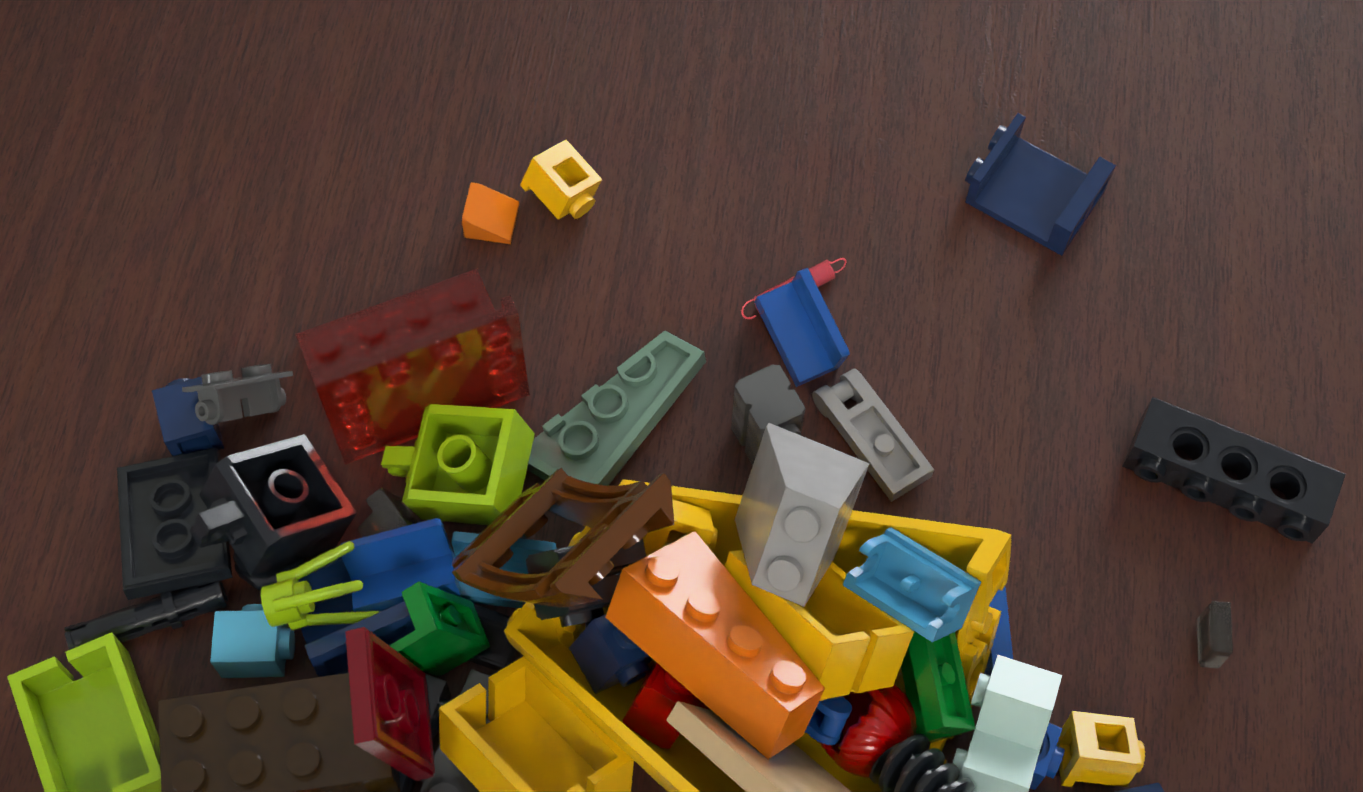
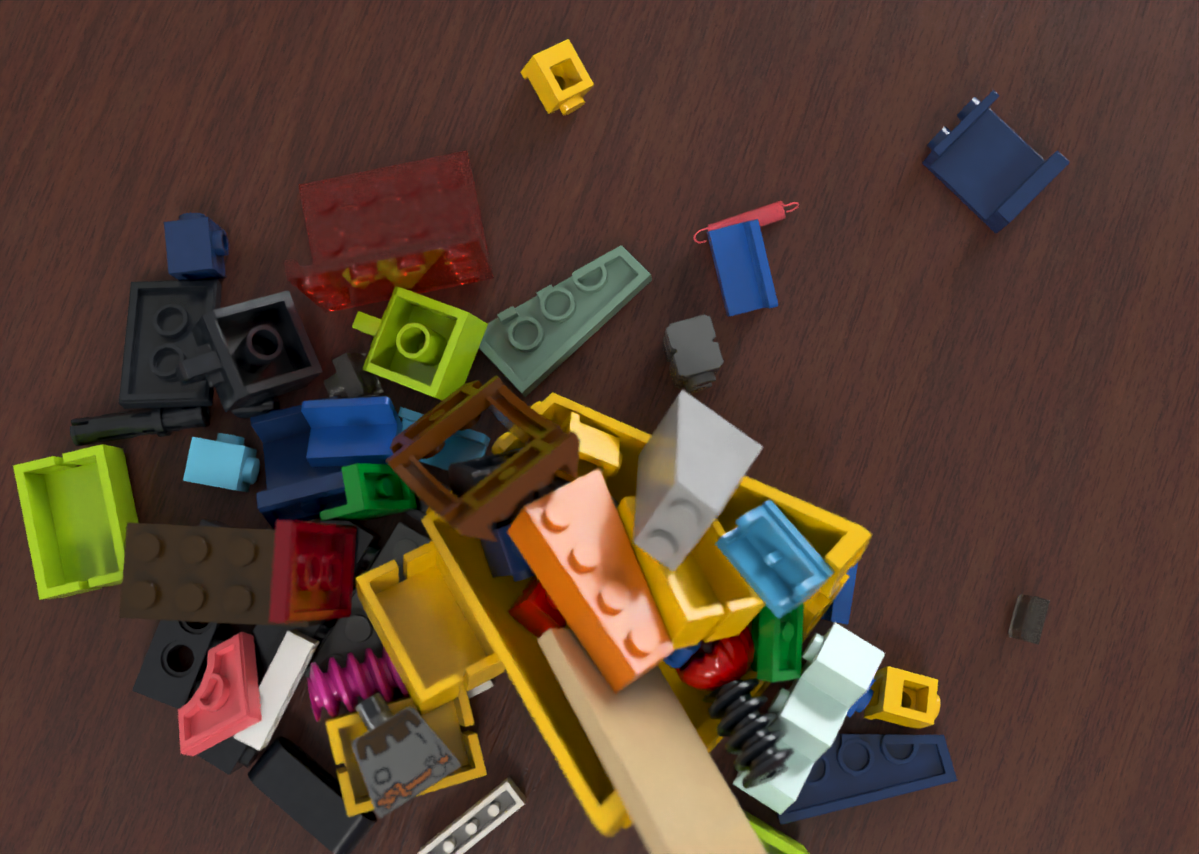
camera: 15 degrees right, 20 degrees up
(221, 393) = (223, 236): dark grey hinge -> none
(291, 600) = (256, 447): lime plant -> none
(489, 215) = (488, 97): orange slope -> none
(874, 434) = (783, 377): light grey plate -> none
(1308, 485) = (1151, 506): black brick -> none

